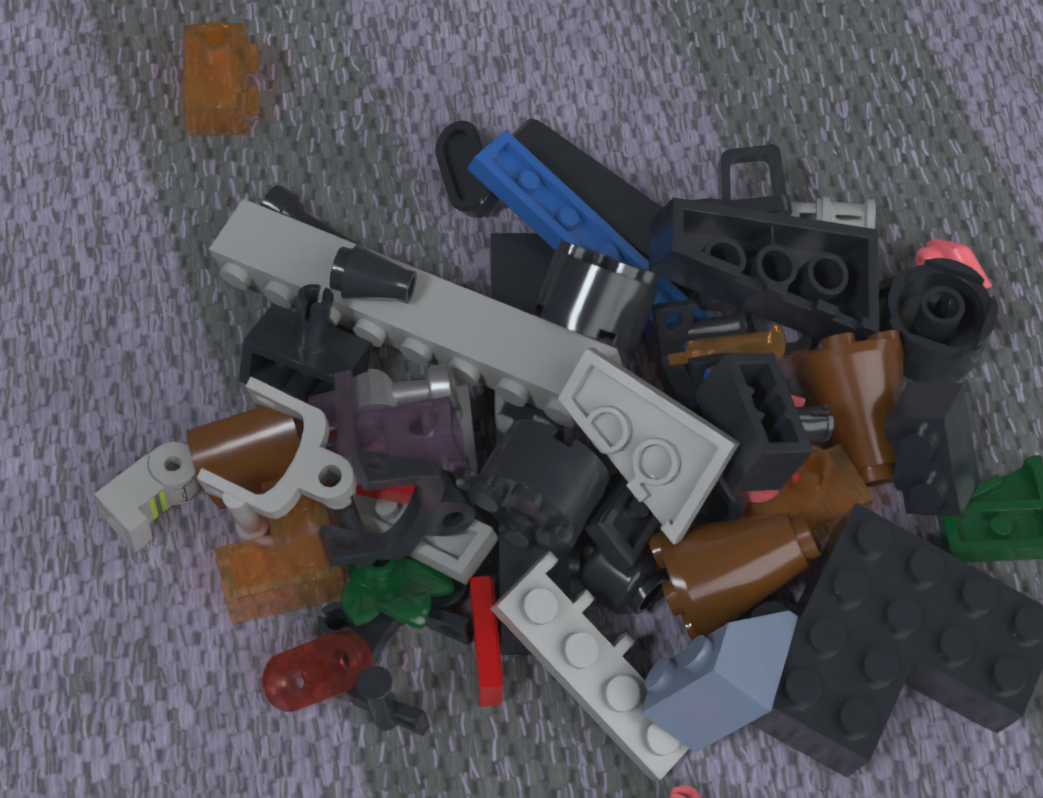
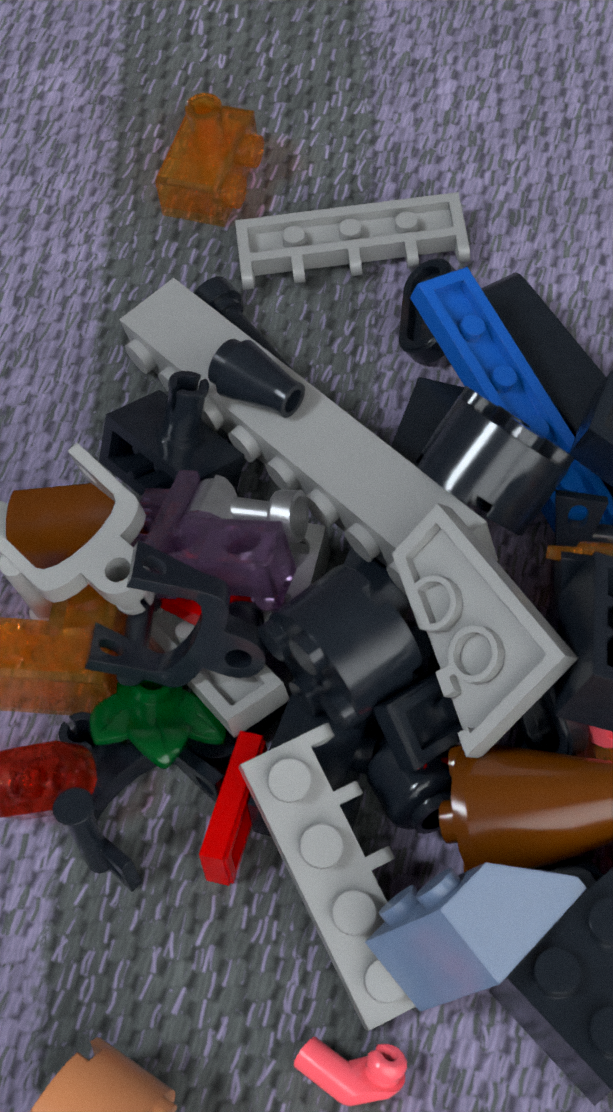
camera: 30 degrees right, 5 degrees down
(371, 118) = (351, 236): none -> light grey hinge

